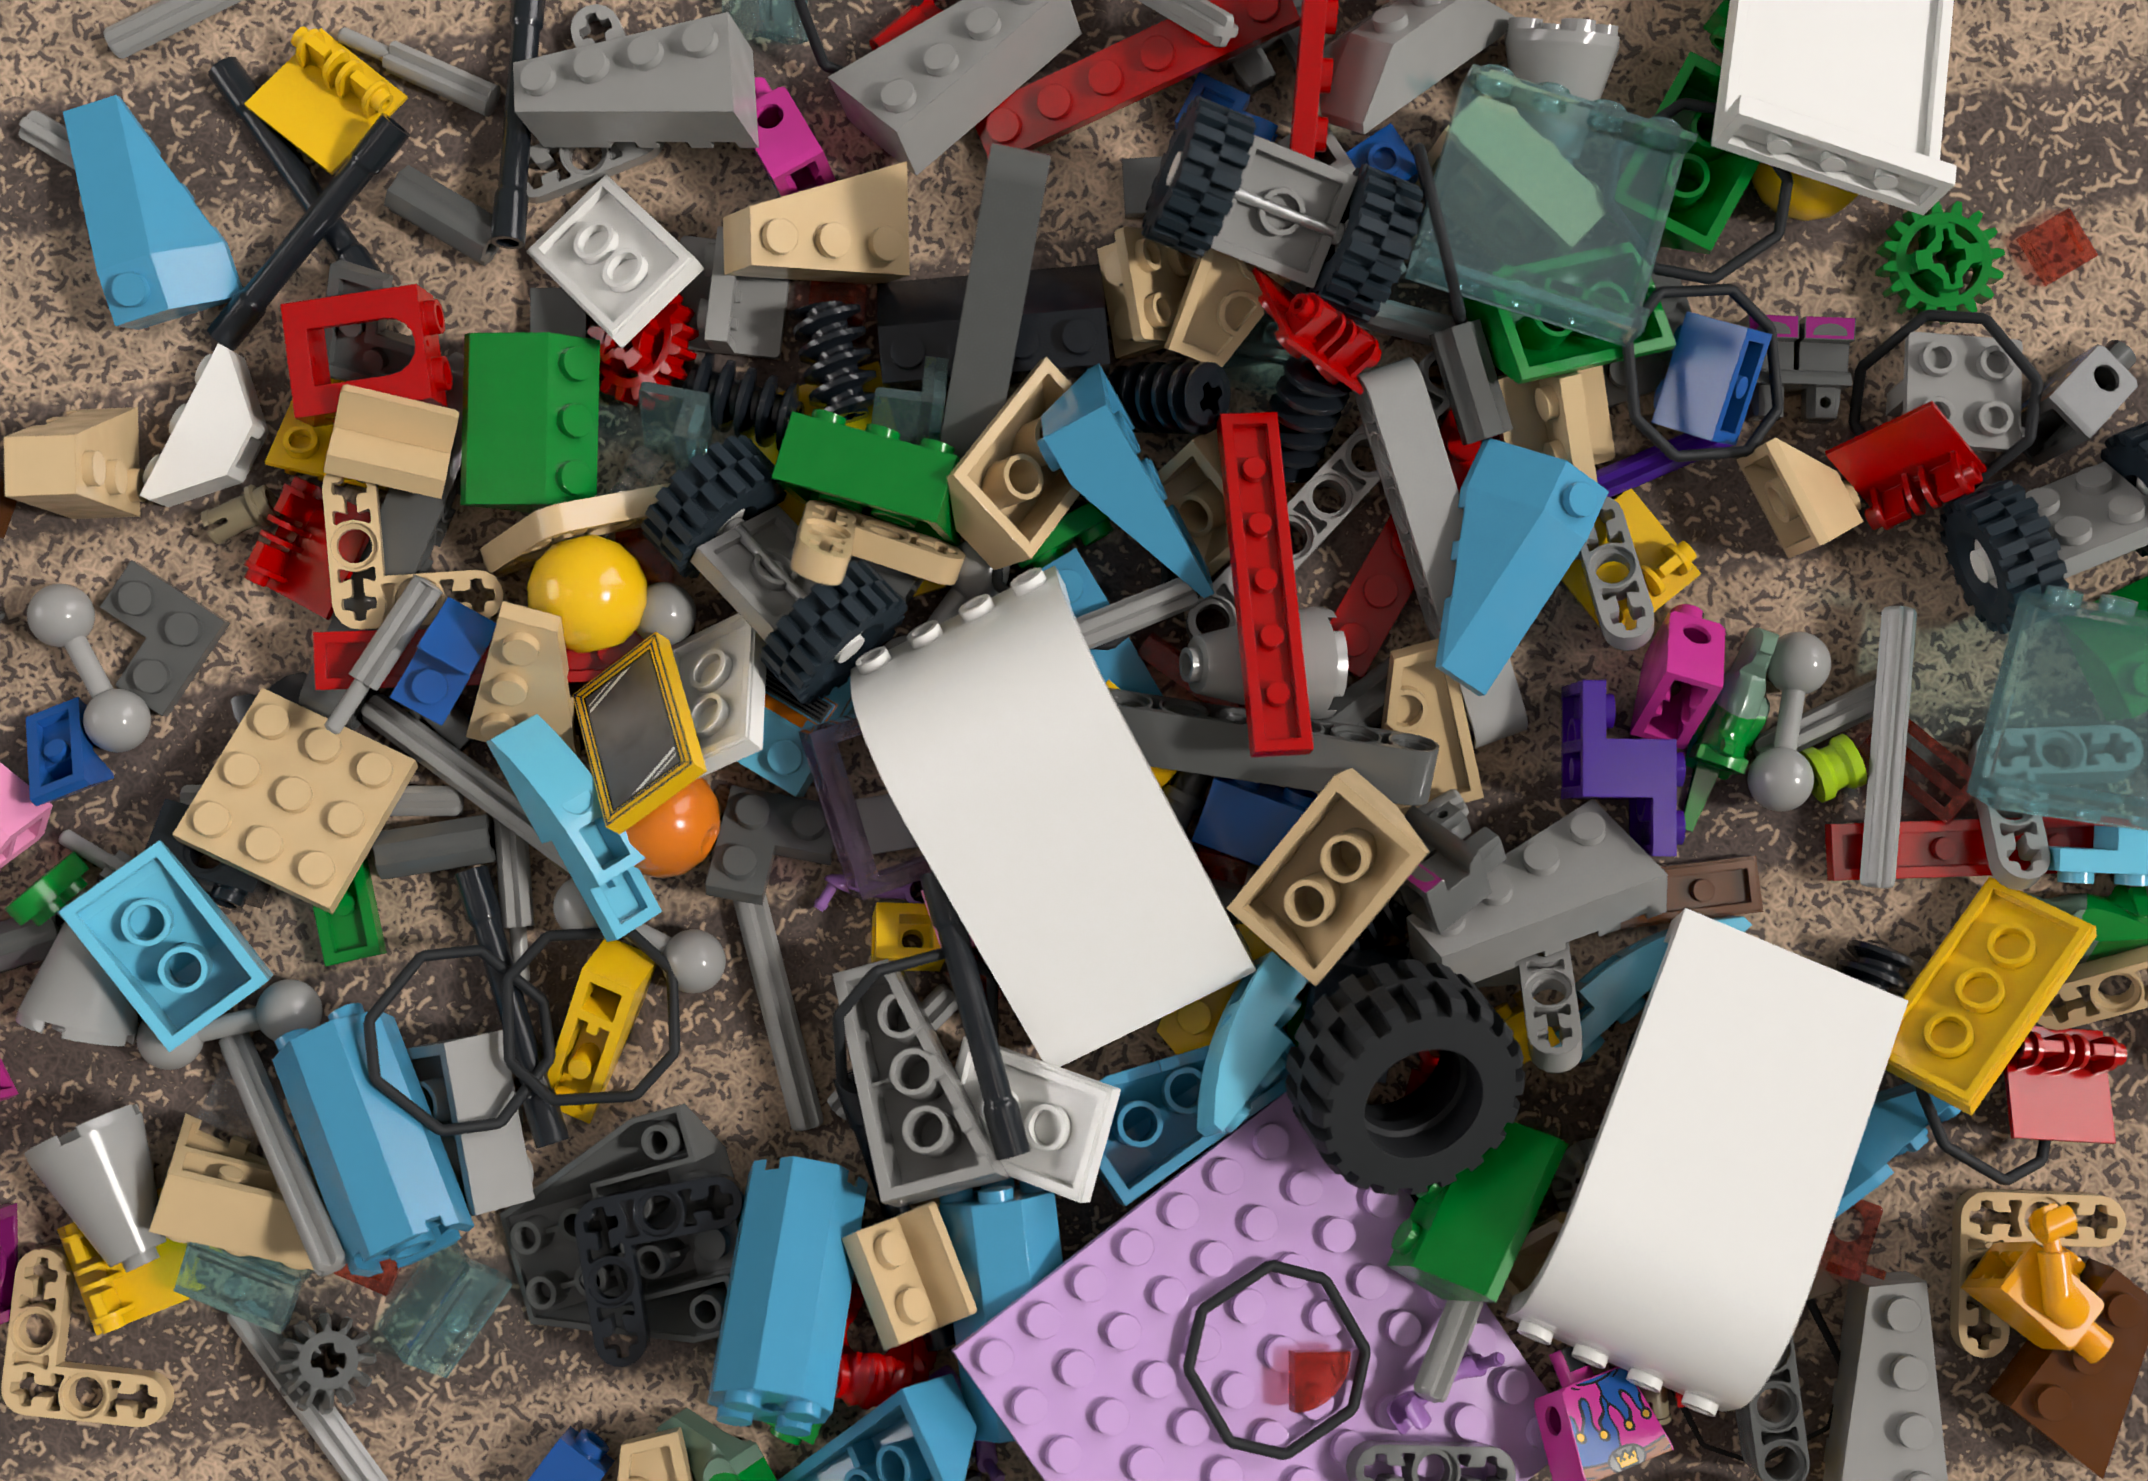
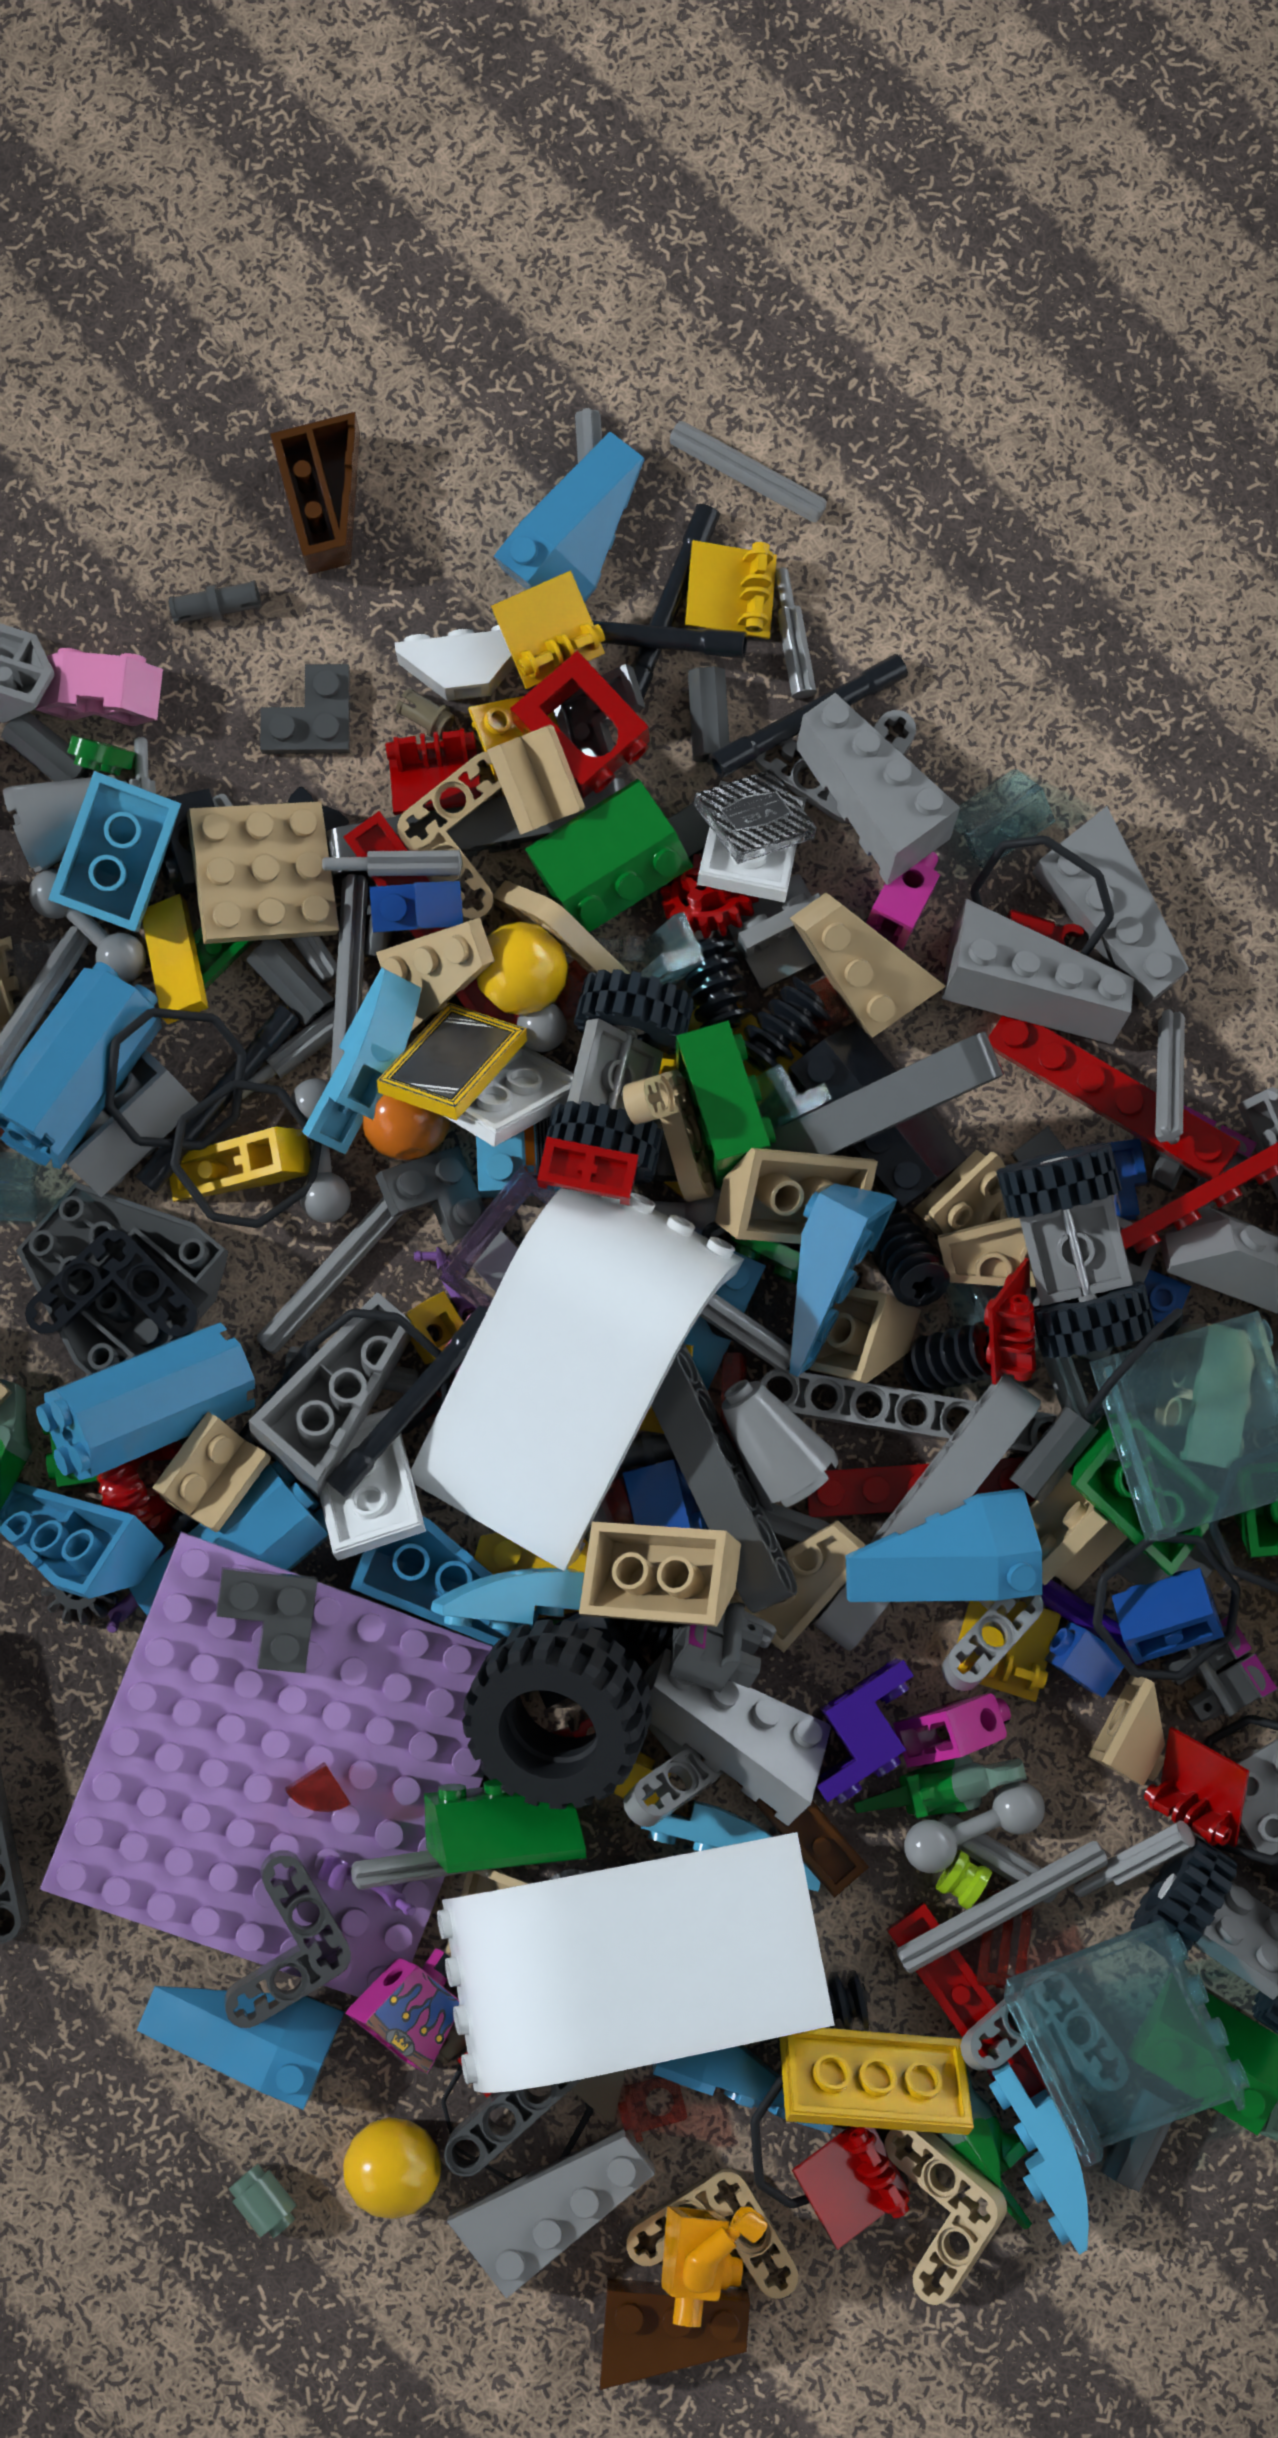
camera: 55 degrees right, 5 degrees down
(61, 754) = (195, 703): blue slope -> none
(64, 618) = (239, 721): light grey piece -> none
(78, 464) = (389, 592): tan wedge -> none
(233, 320) = (547, 627): none -> yellow hinge
(326, 954) = (174, 956): none -> yellow tile
(589, 238) = (754, 816): none -> tile
(854, 666) = (588, 1169): none -> red hinge
(1098, 1293) = (283, 1605): none -> dark grey plate
(1206, 1400) = (254, 1728): black piece -> none
(1264, 585) = (822, 1403): red plate -> none
(1694, 494) = (1084, 1659): none -> blue brick
(1934, 570) = (1140, 1858): none -> light grey axle

